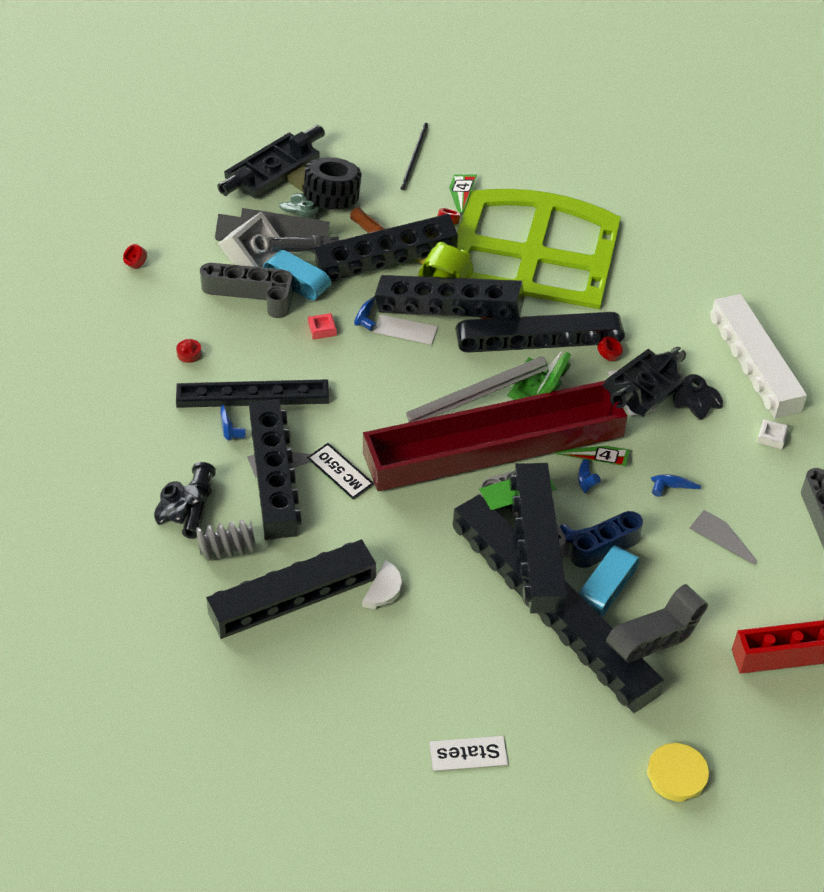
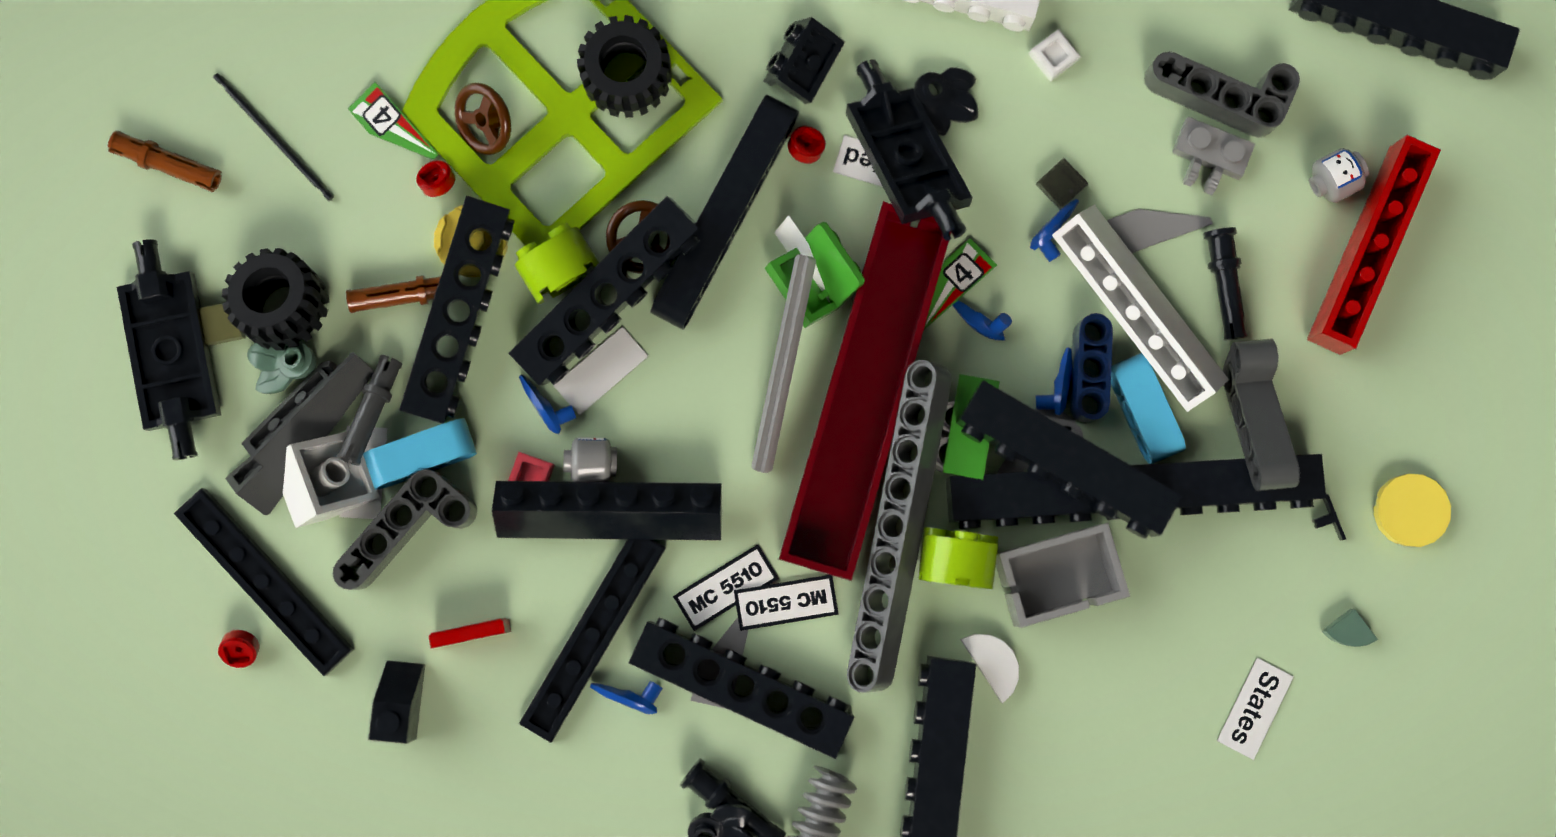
camera: 60 degrees left, 35 degrees up
(149, 327) = (397, 703): none -> black slope
(177, 253) = (264, 581): none -> black tile
(188, 350) = (466, 673): red tile -> none
(213, 337) = (469, 632): none -> red tile
(318, 436) = (715, 592): none -> sticker
(330, 358) = (607, 510): none -> black brick
(351, 340) = (591, 460): none -> light grey head
(365, 118) = (150, 155): none -> dark orange pin
(426, 484) = (886, 540): none -> dark grey beam
(433, 522) = (958, 558): none -> lime brick
(466, 581) = (1059, 572): none -> light grey piece
(498, 216) = (489, 118): none -> reddish brown piece
(565, 777) = (1350, 630): none -> sand green tile
(576, 250) = (624, 38): none -> black tyre
(629, 726) = (1330, 518): none -> black piece
(655, 324) = (804, 59): none -> black bracket
(664, 541) = (1140, 308): none -> white brick
(703, 473) = (1062, 183): none -> clear smoke tile
(733, 577) = (1225, 265): none -> black pin
(794, 537) = (1212, 149): none -> light grey hinge

